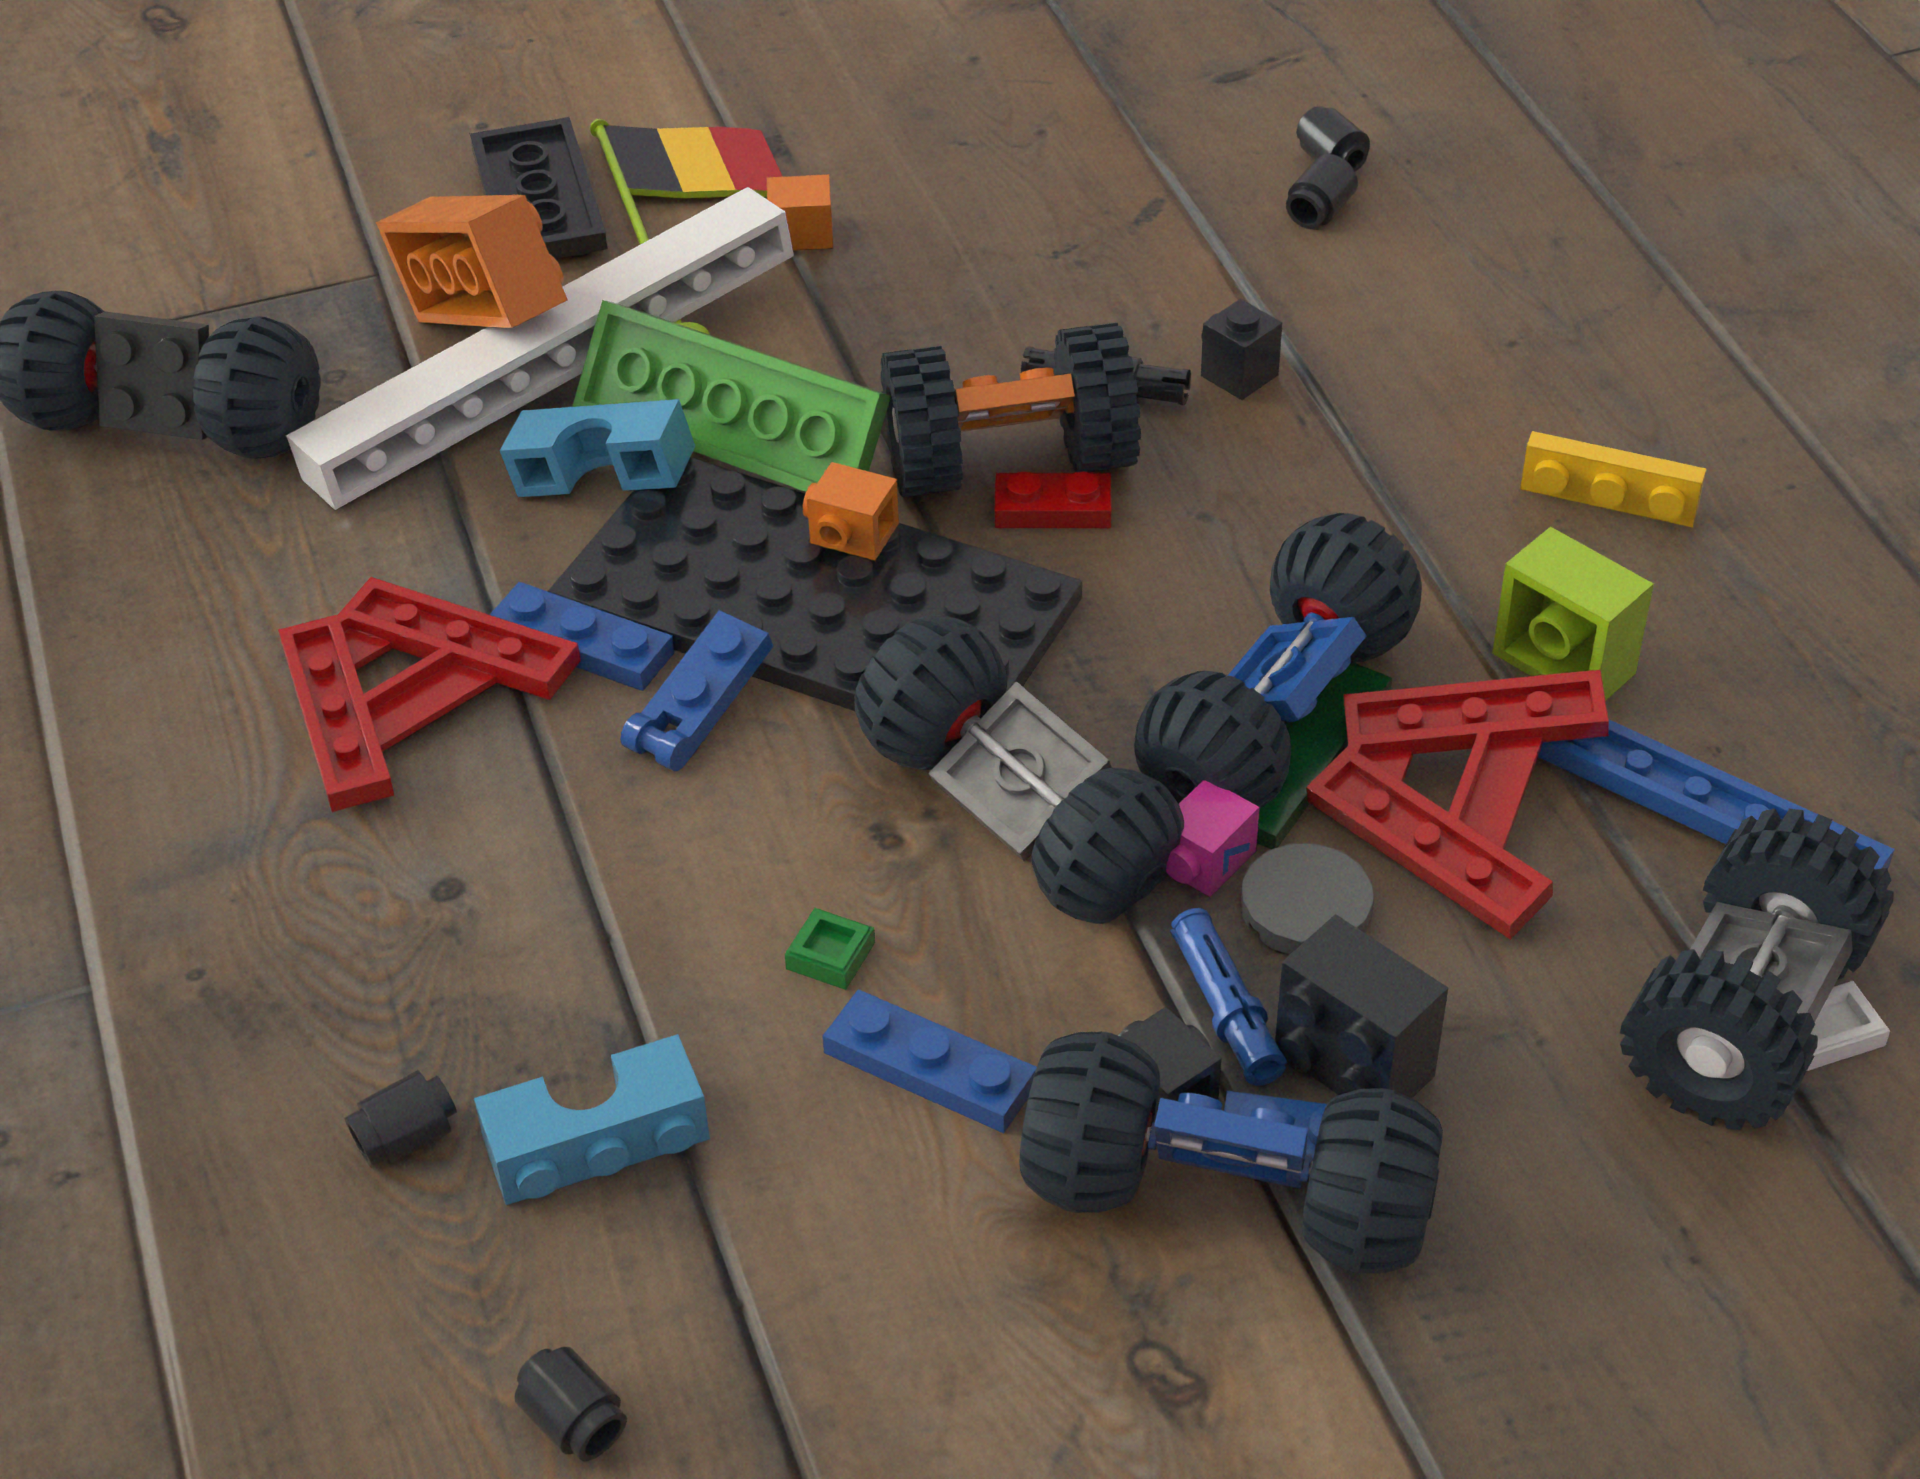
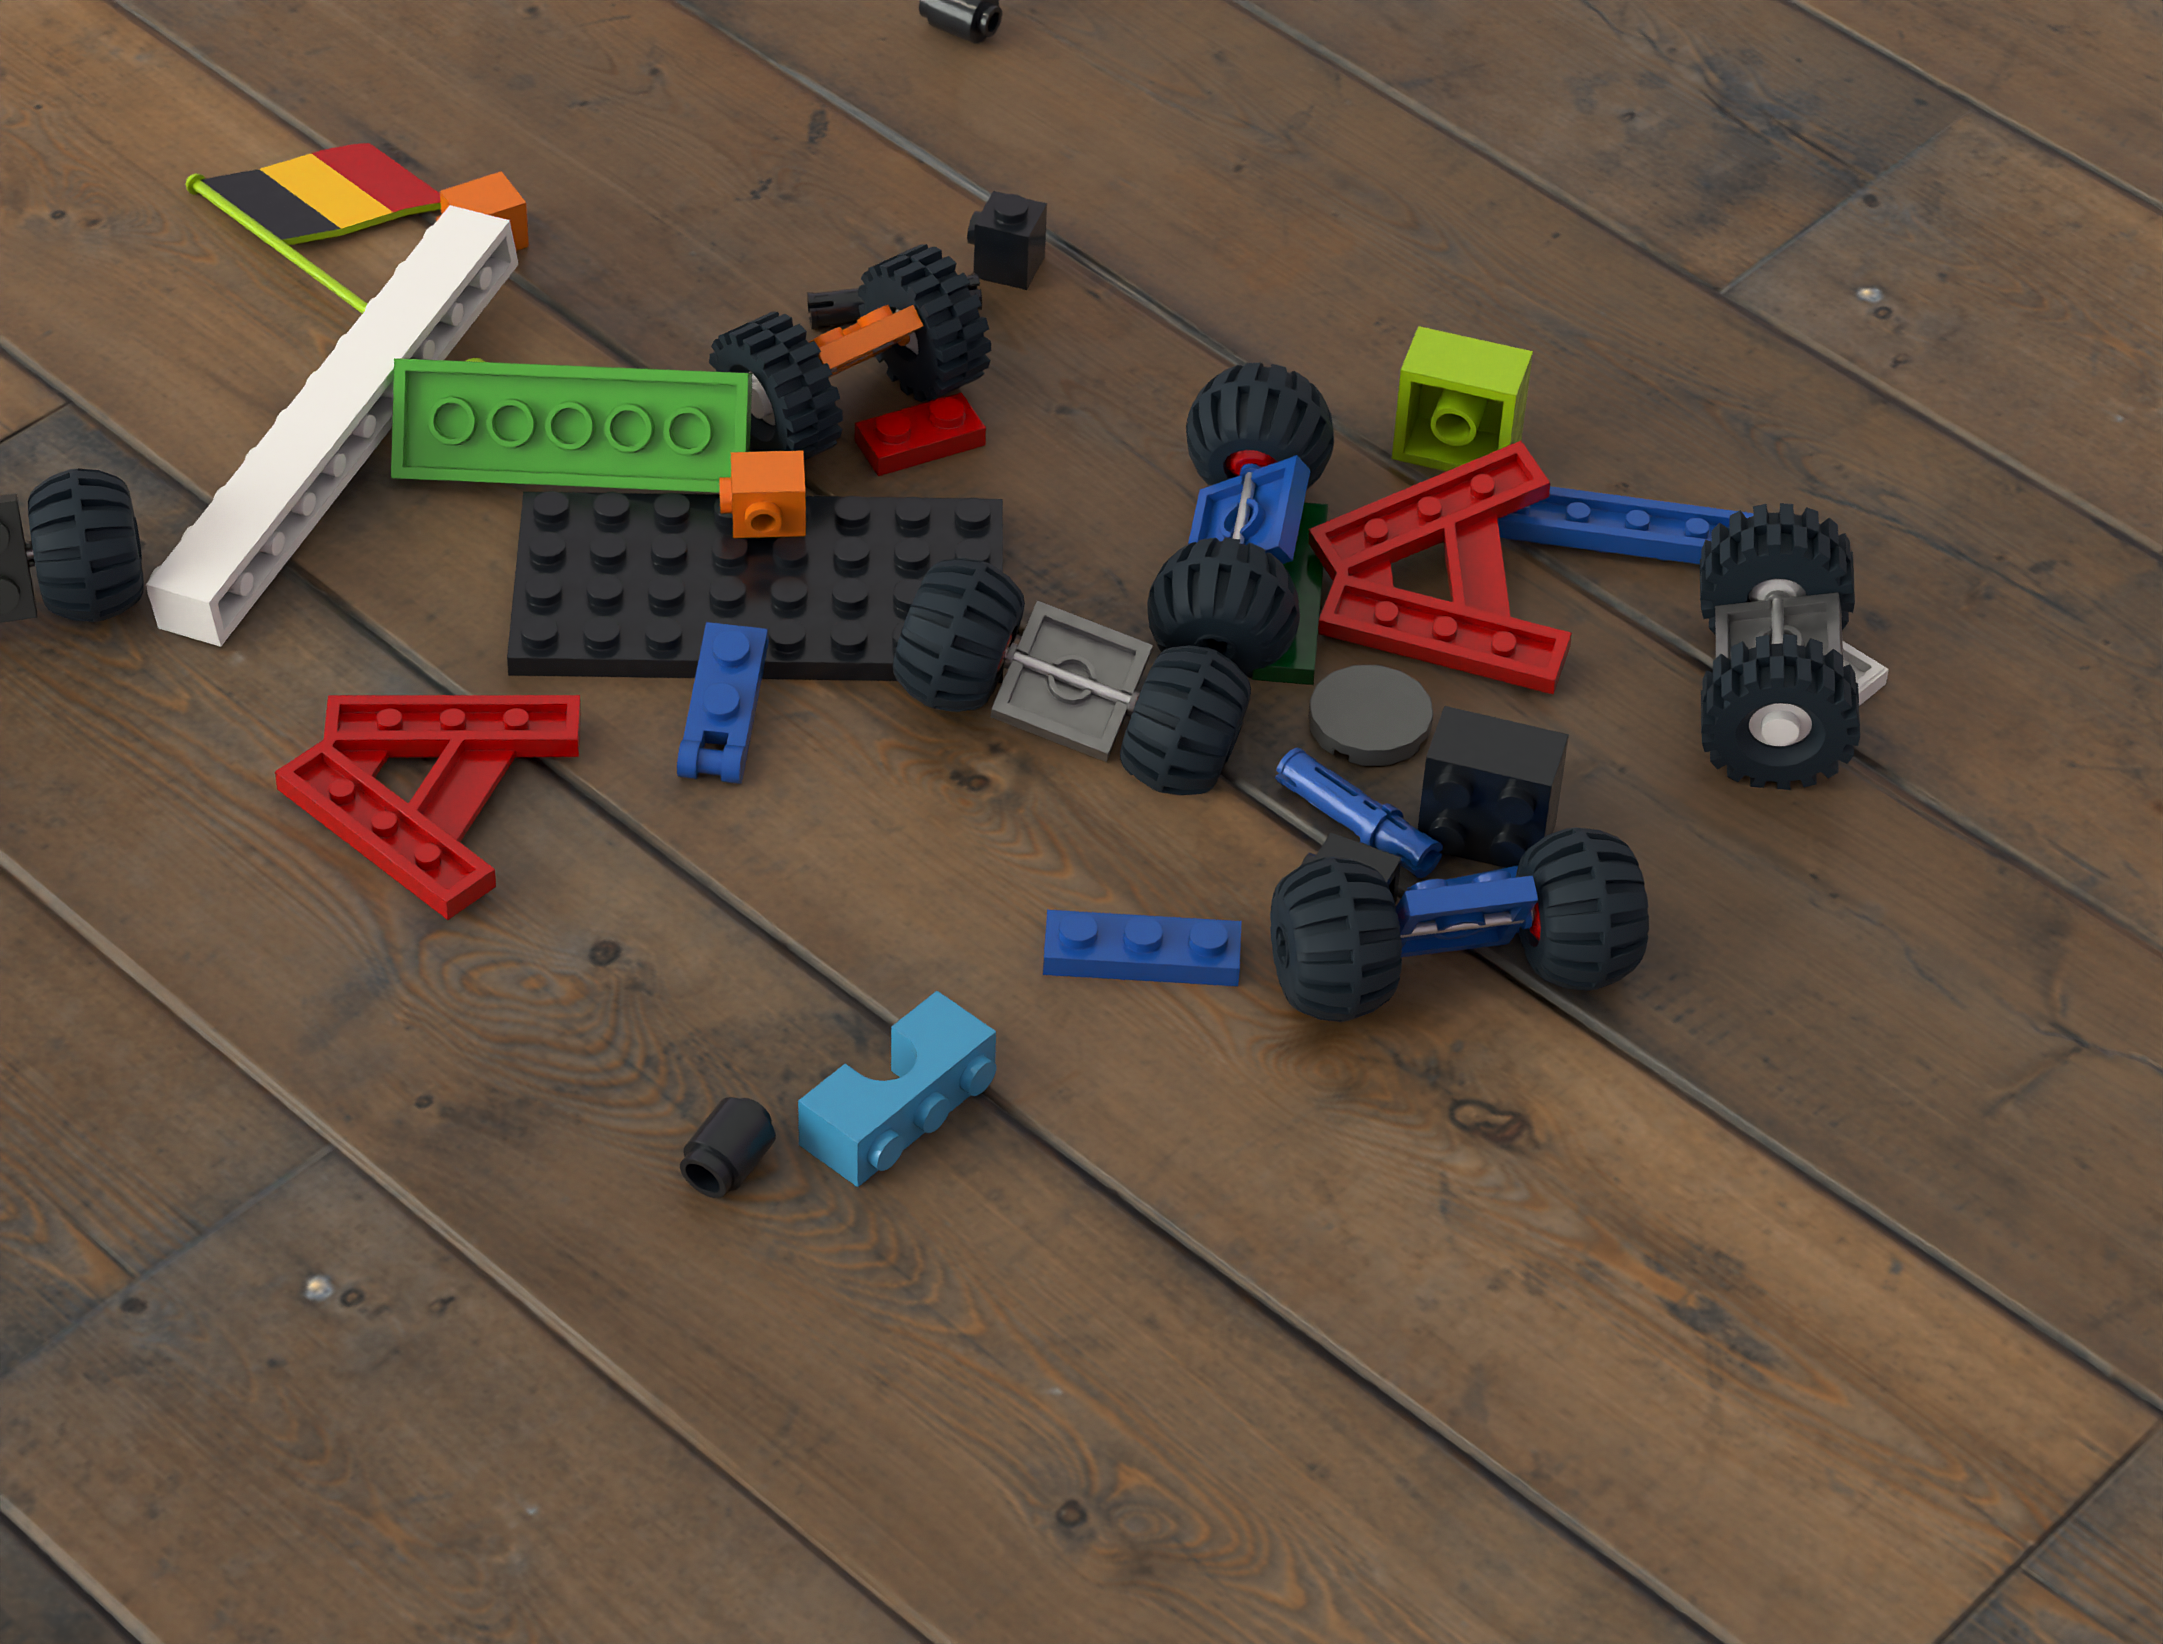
camera: 30 degrees left, 0 degrees up
(473, 260) = (229, 355): orange brick -> none
(549, 170) = (188, 268): black plate -> none
(557, 446) = (426, 512): dark azure arch -> none
(570, 1403) = (1039, 1305): black brick -> none
(605, 641) = (606, 688): blue plate -> none
(830, 948) = (992, 887): green tile -> none
(1215, 838) = (1274, 682): dark pink brick -> none
(1321, 191) = (981, 63): black brick -> none
(1612, 479) = (1411, 270): yellow plate -> none

